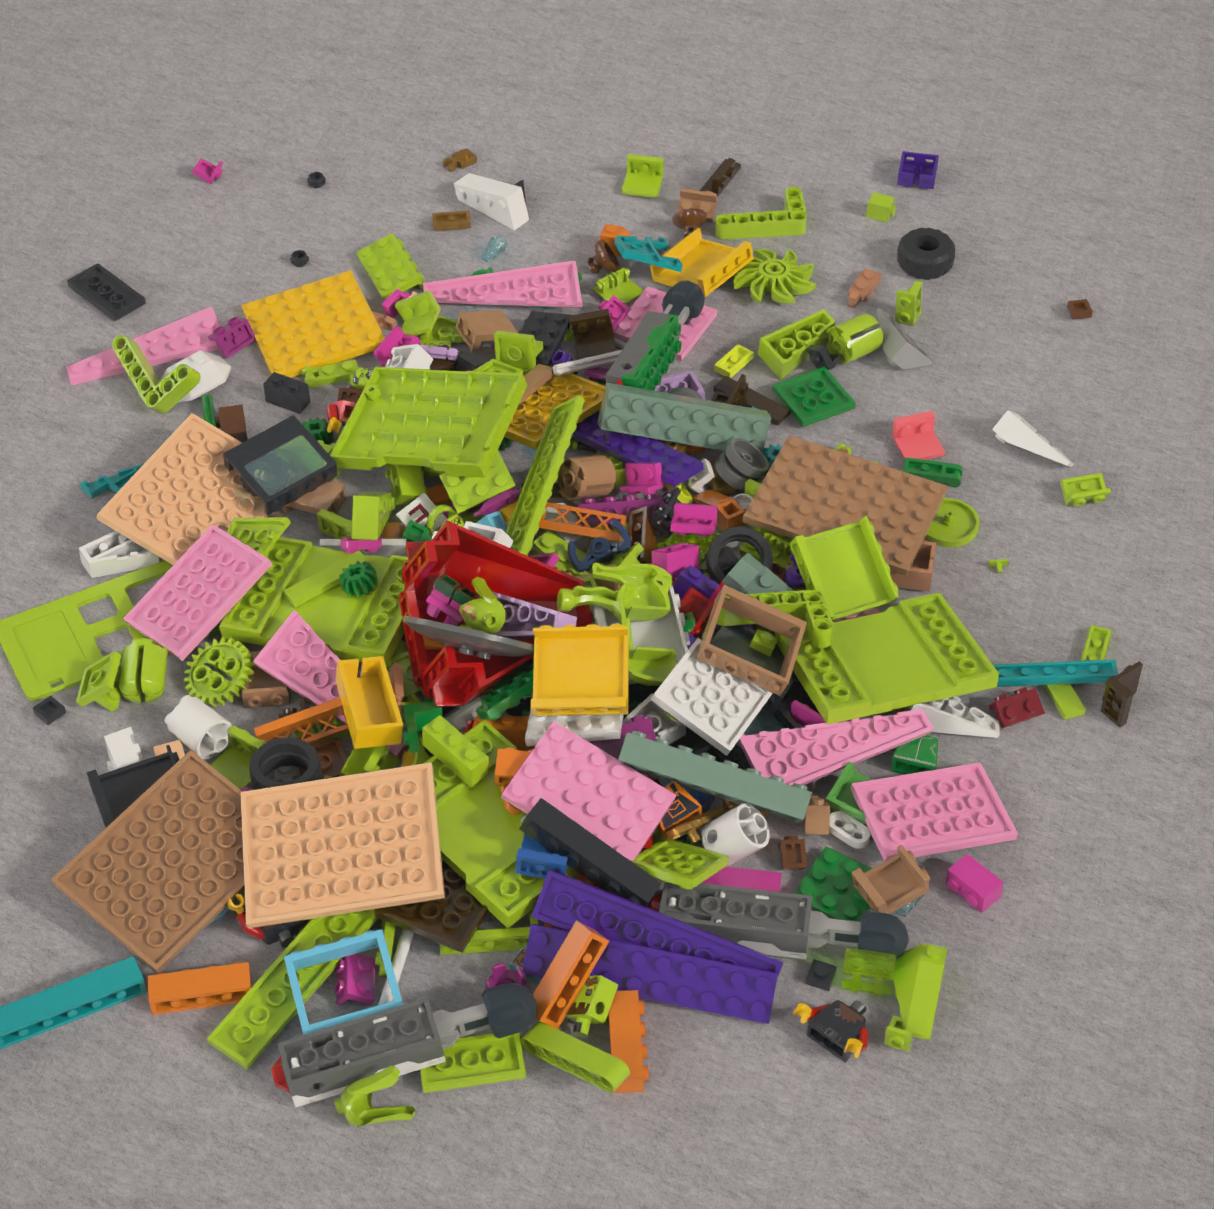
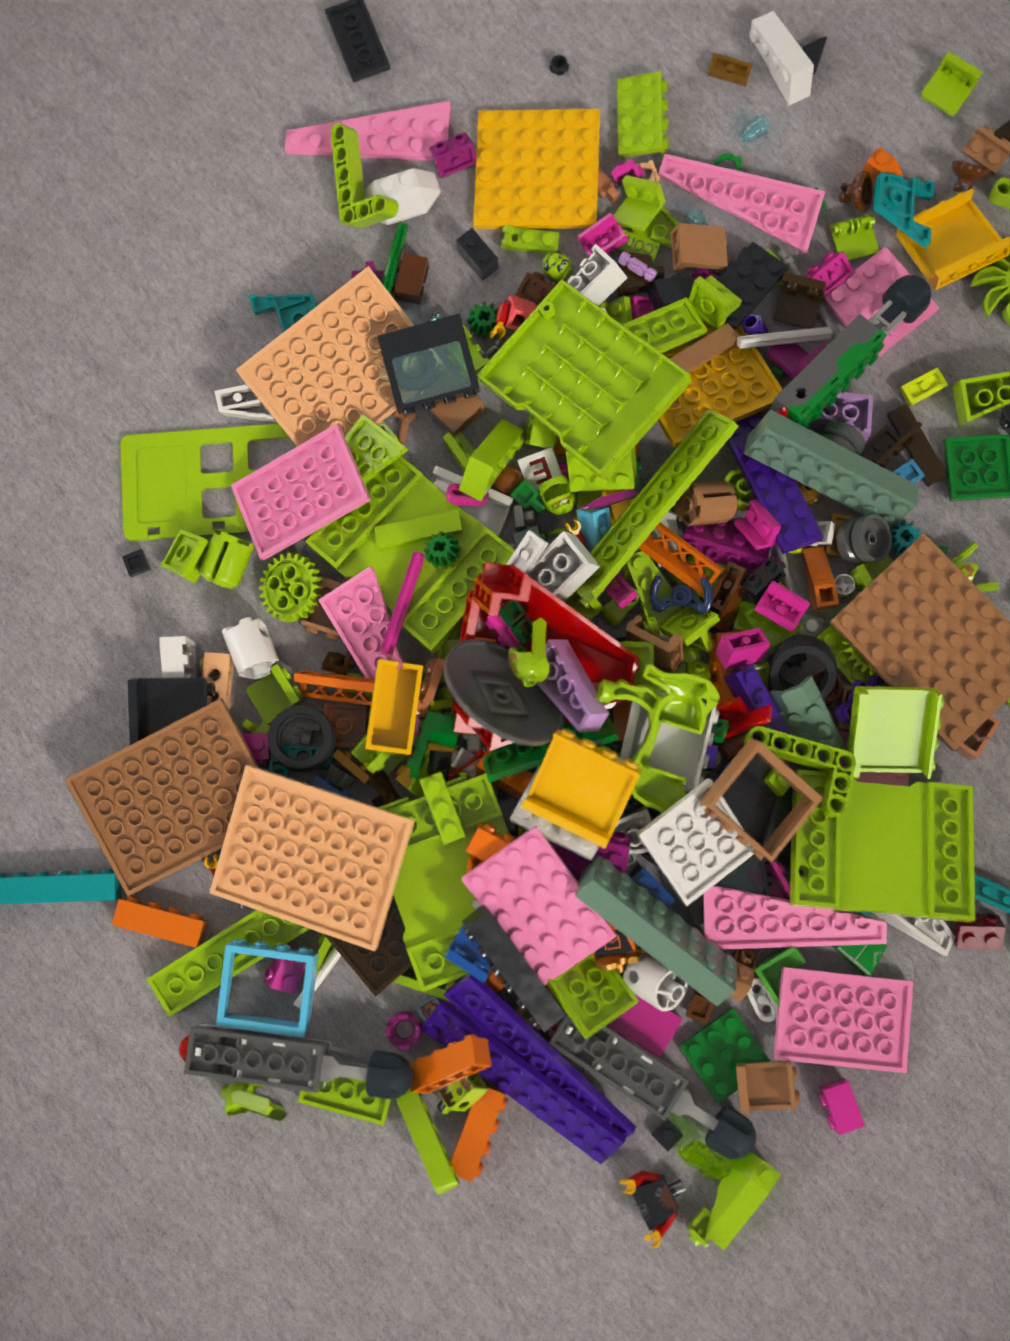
camera: 30 degrees right, 35 degrees up
(338, 627) = (402, 603): none -> dark pink axle

